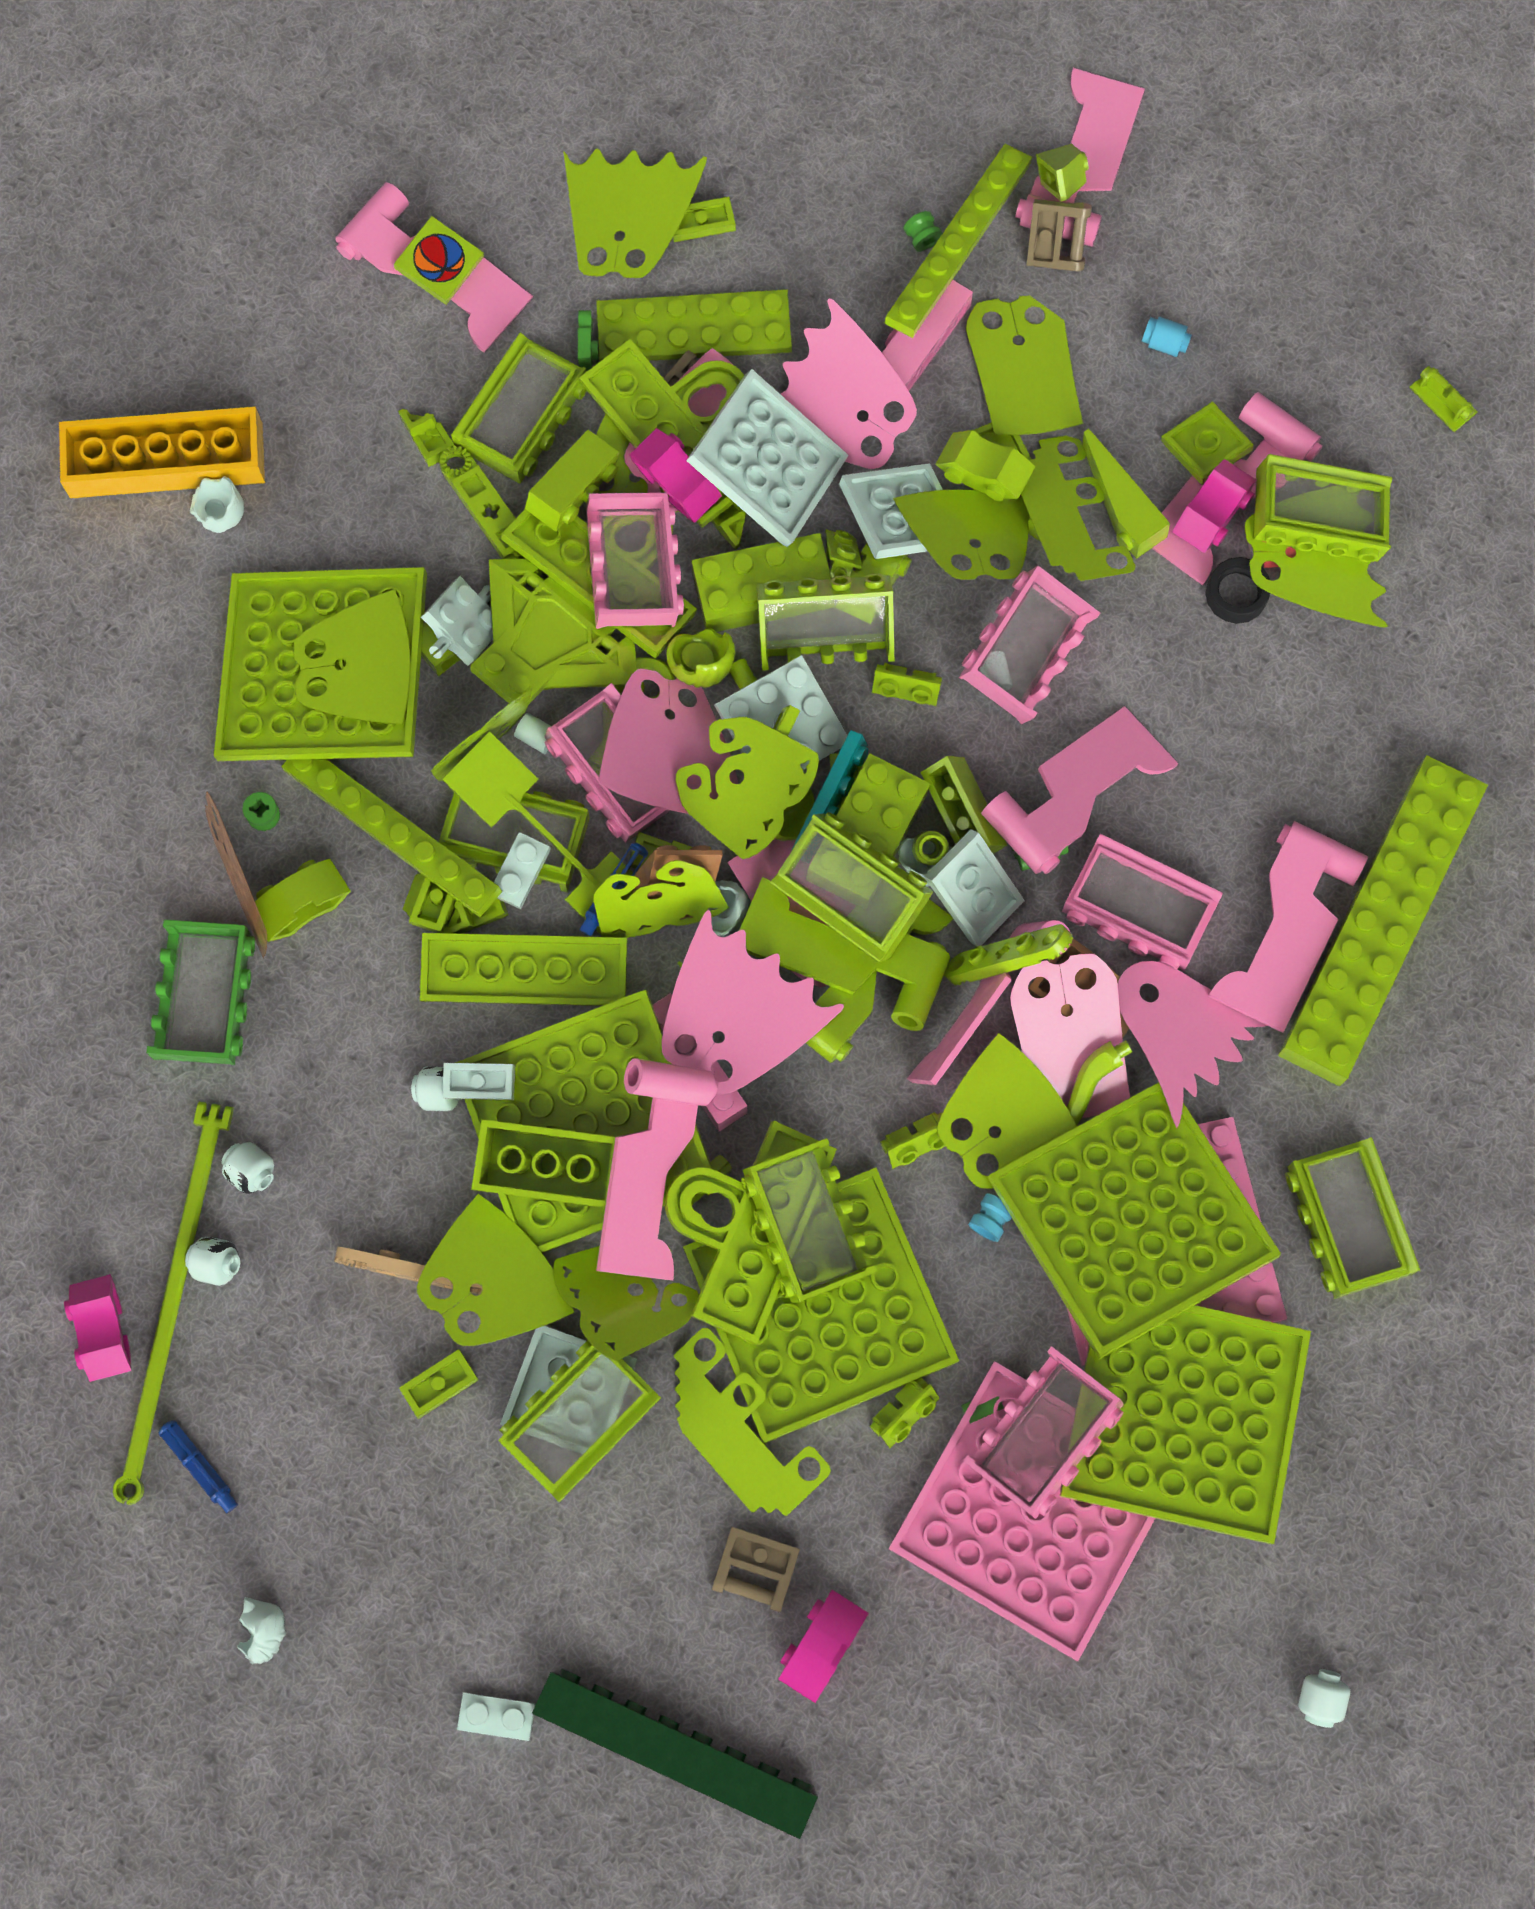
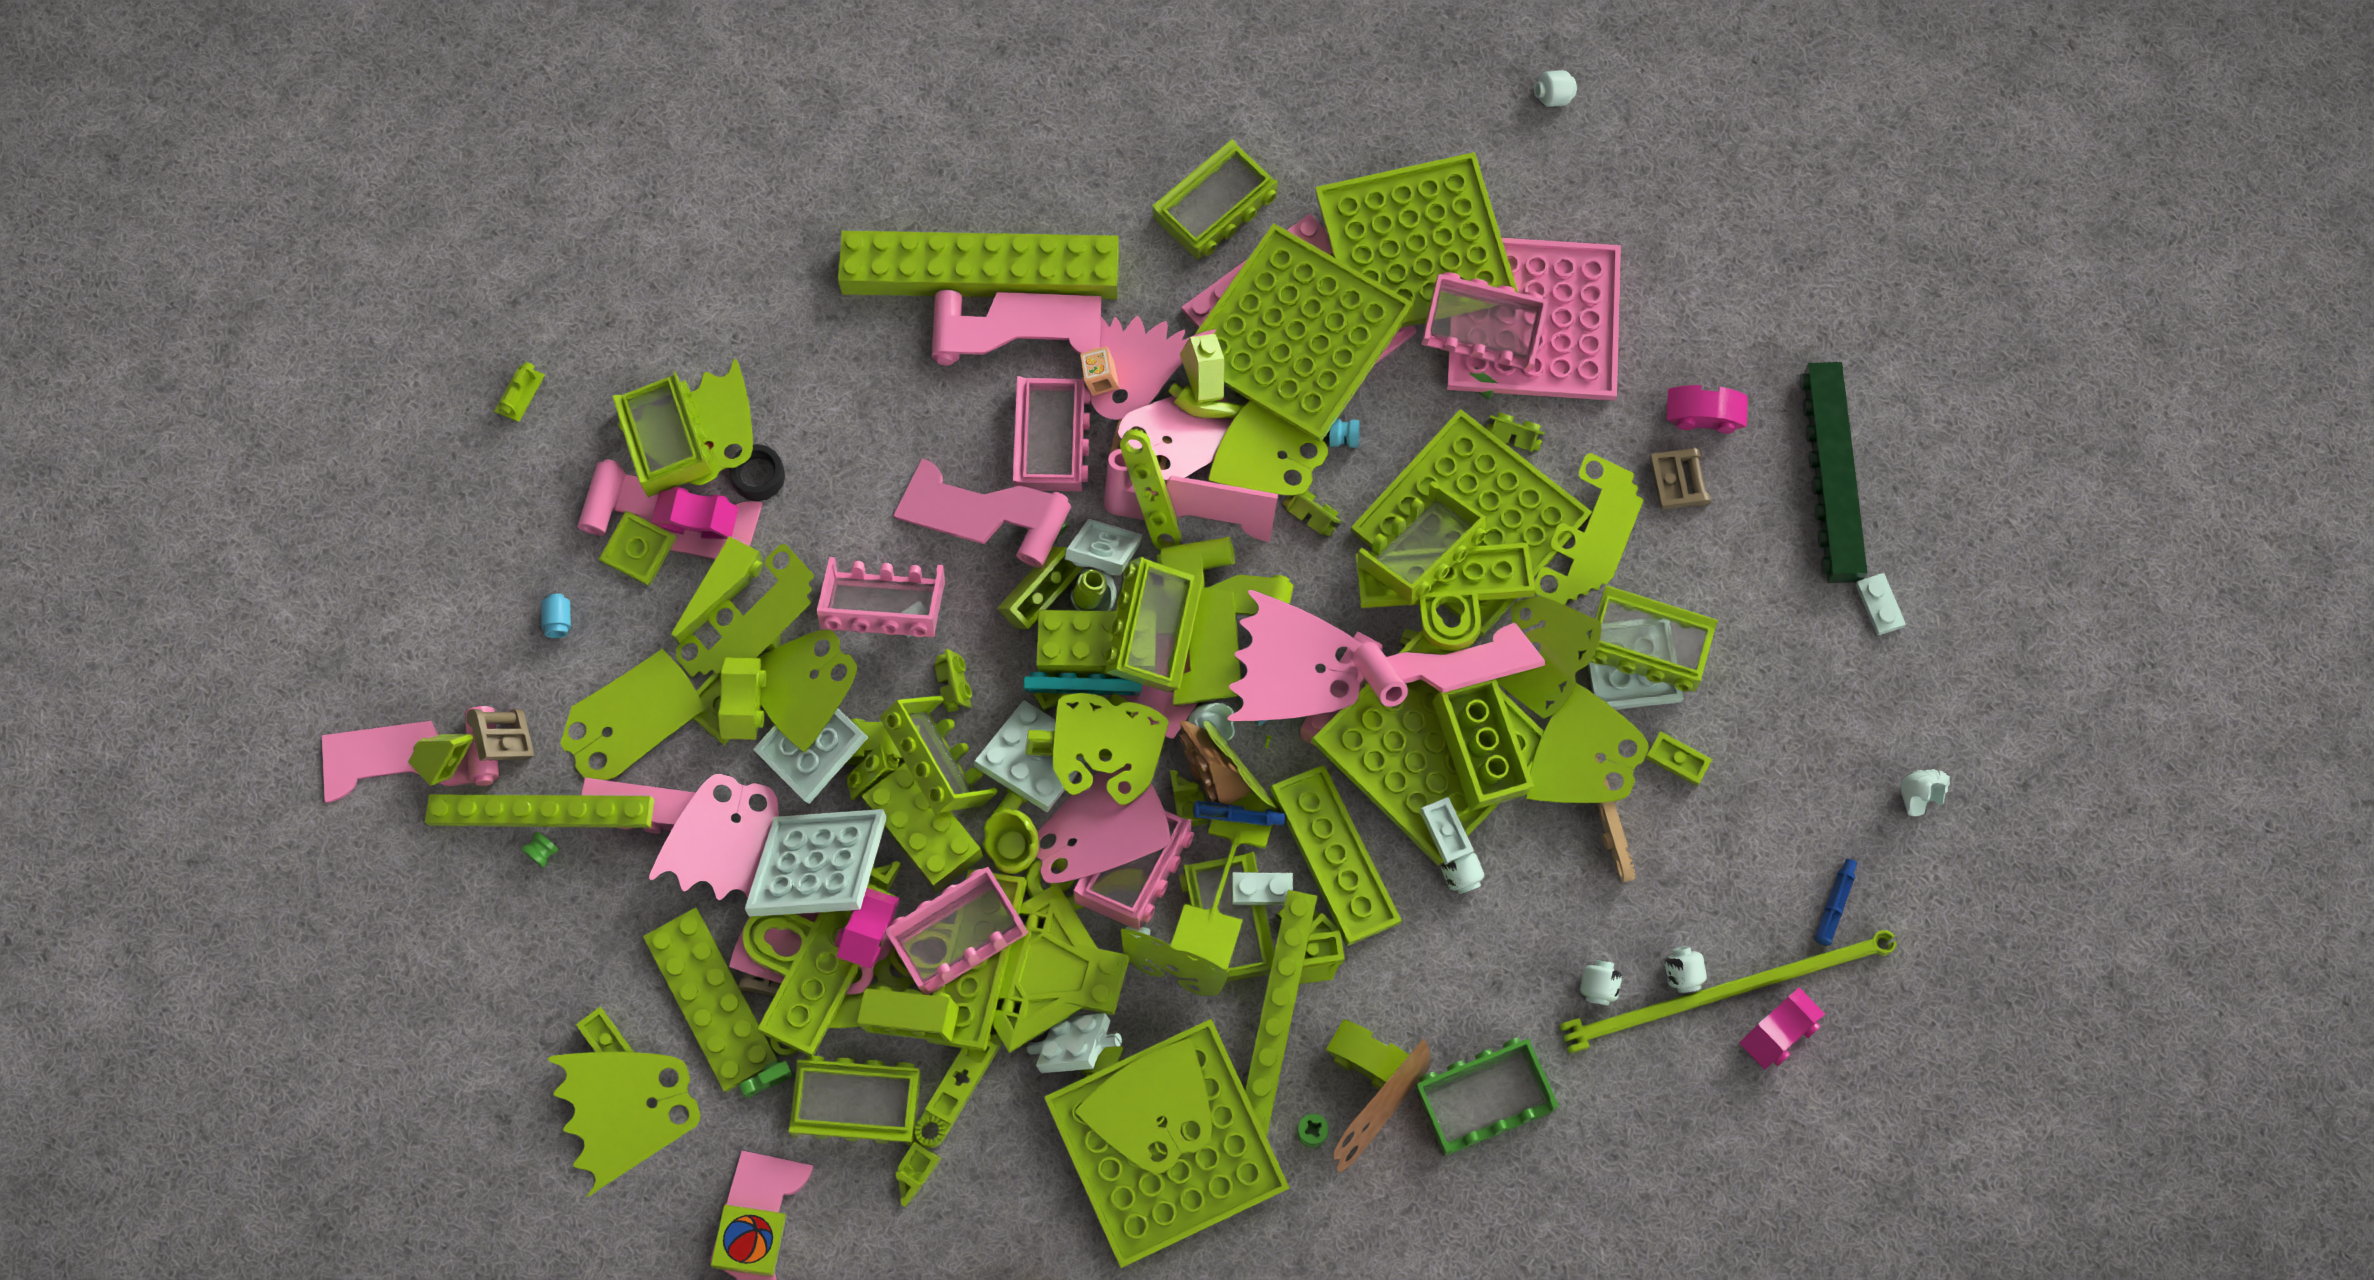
camera: 115 degrees left, 5 degrees down
(1129, 1086) = (1204, 367): none -> lime slope
(1188, 981) = (1099, 371): none -> light nougat brick

